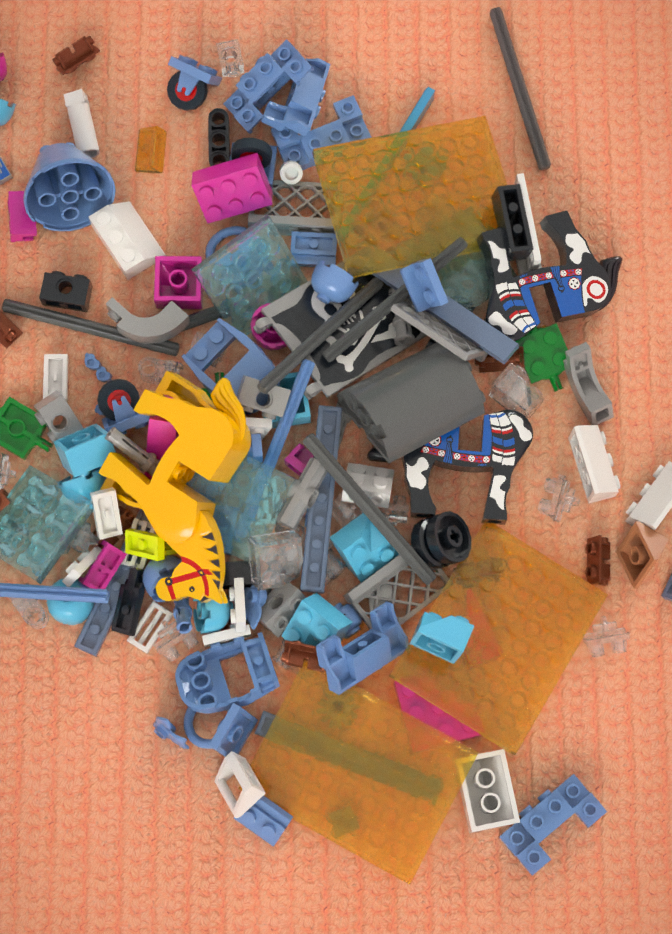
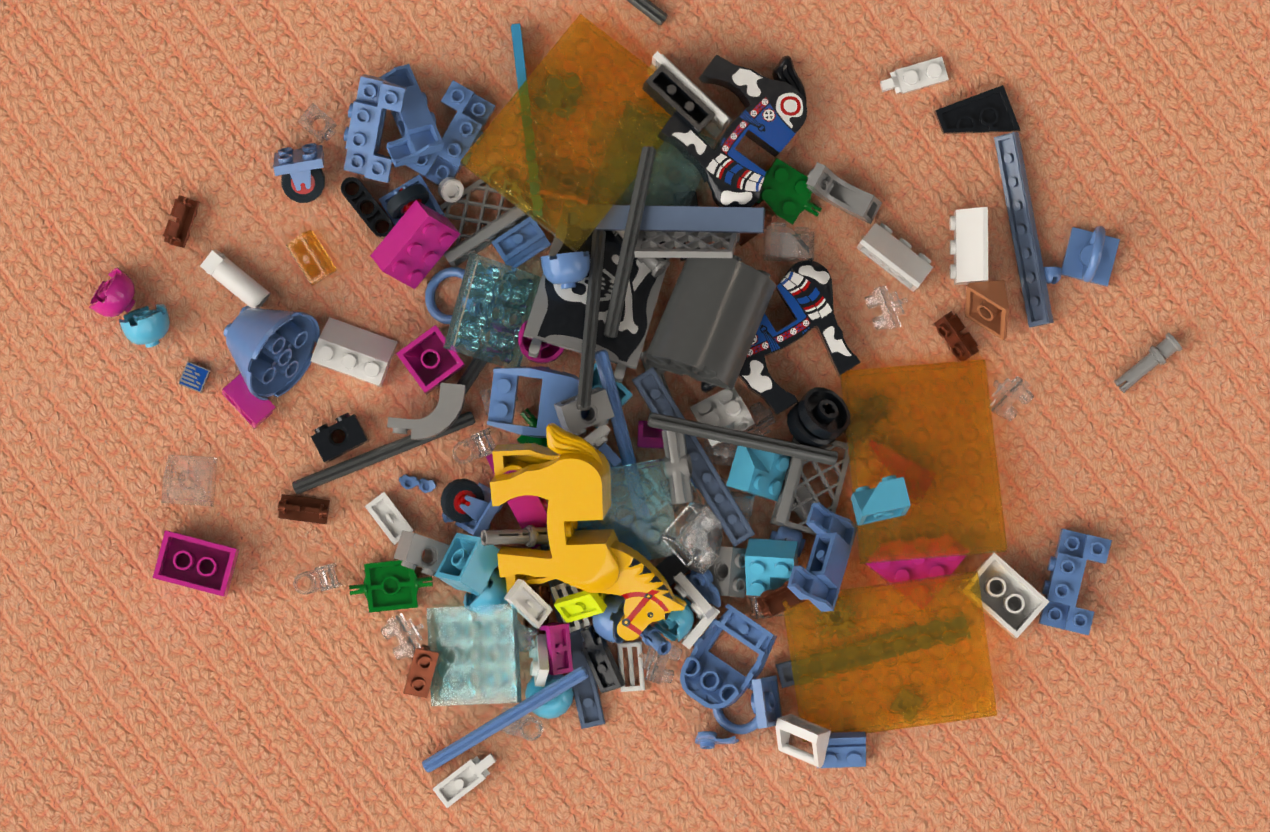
camera: 40 degrees left, 10 degrees up
(423, 285) = (647, 215): medium blue bracket -> none

